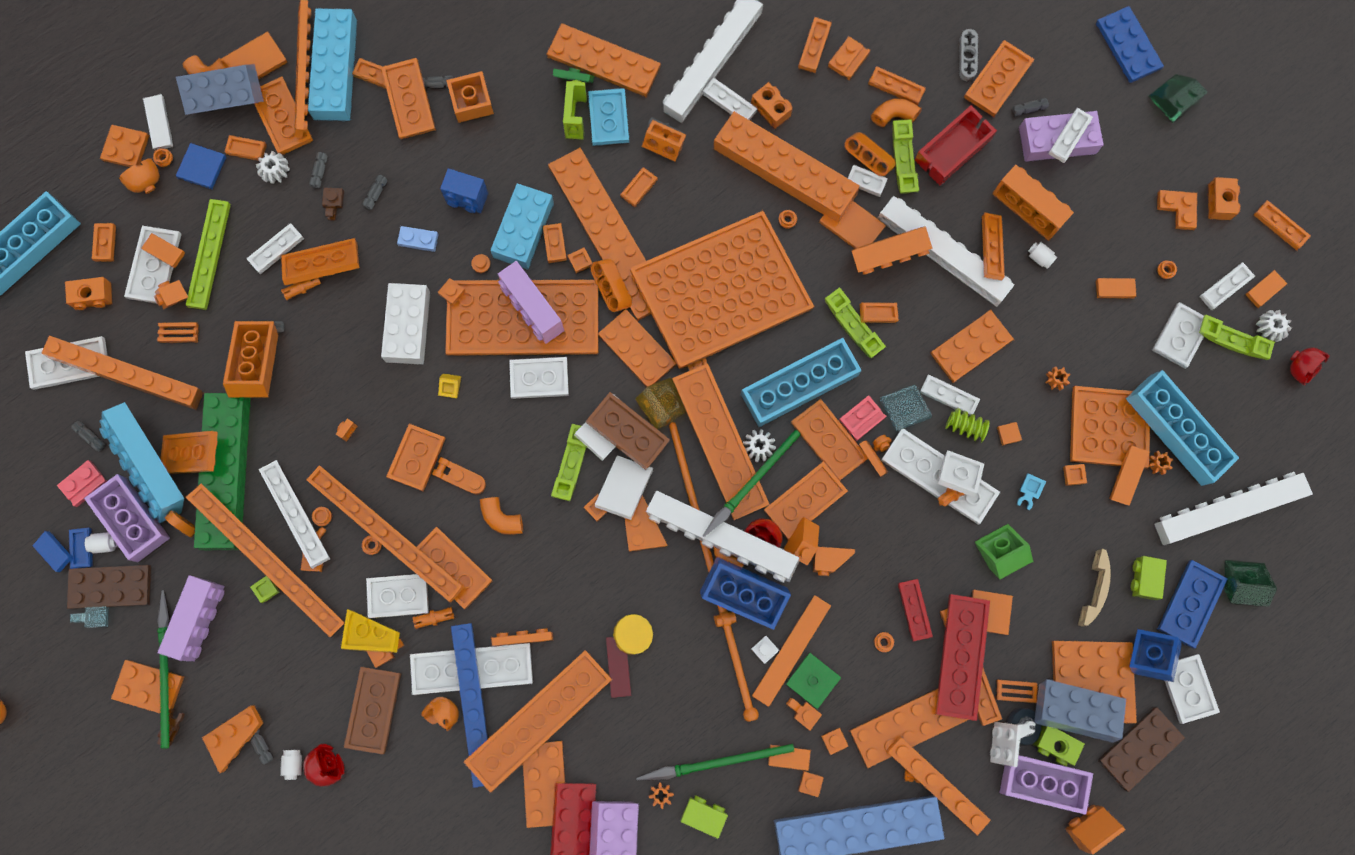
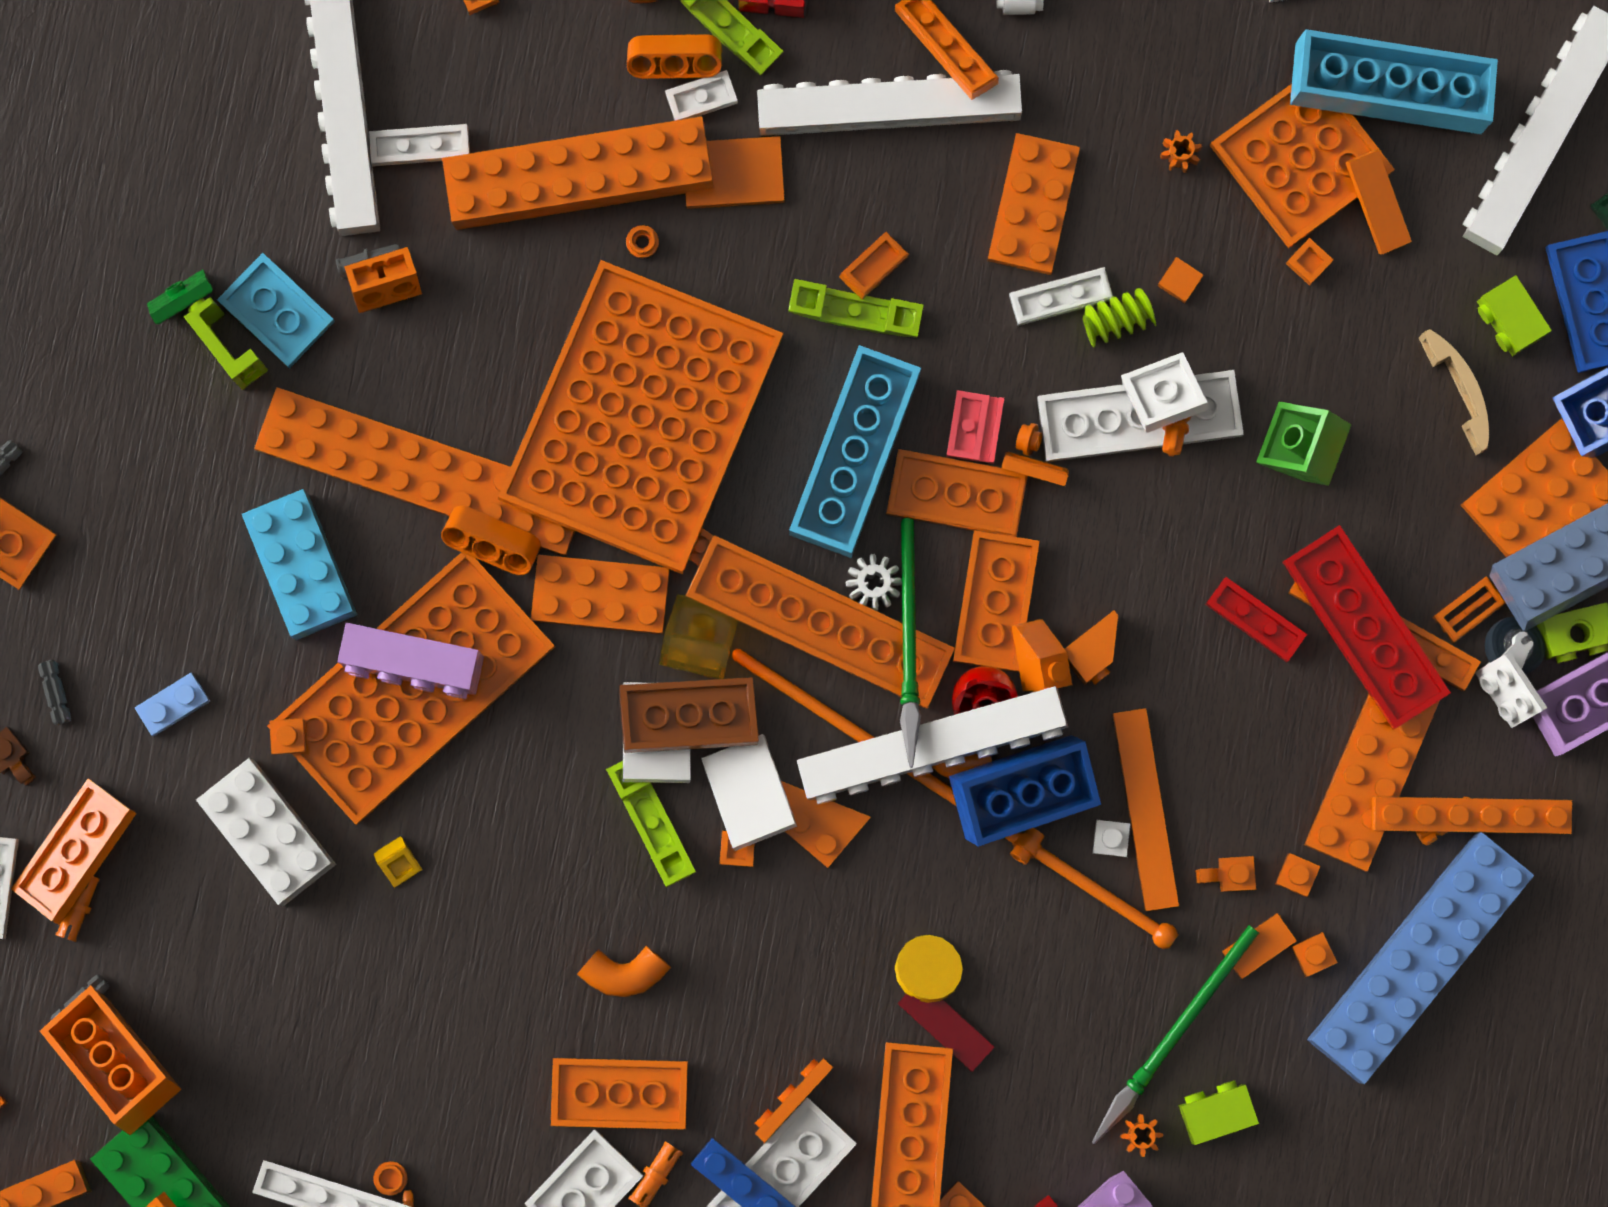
camera: 35 degrees left, 5 degrees up
(346, 429) = (317, 1039): orange plate -> none
(365, 545) = (478, 1156): orange plate -> none
(385, 534) = (495, 1126): orange plate -> none
(416, 457) = (442, 993): orange plate -> none
(460, 477) = (522, 967): orange plate -> none
(464, 191) = (179, 587): blue brick -> none
(470, 97) = (65, 449): orange brick -> none
(480, 263) = (288, 663): orange plate -> none
(539, 377) = (507, 747): white plate -> none
(554, 243) = (362, 548): orange plate -> none
(580, 260) = (417, 542): orange plate -> none
(603, 60) = (195, 235): orange plate -> none
(639, 187) = (404, 371): orange tile -> none
(768, 107) = (480, 109): orange brick -> none
(813, 680) = (1205, 823): green plate -> none
(890, 642) = (1259, 687): orange plate -> none
(891, 249) = (820, 169): orange brick -> none
(906, 407) = (1019, 363): clear light blue tile -> none
(998, 612) = (1361, 526): orange tile -> none
(1031, 488) = (1269, 328): medium azure plate -> none
(1165, 461) = (1409, 143): orange gear -> none

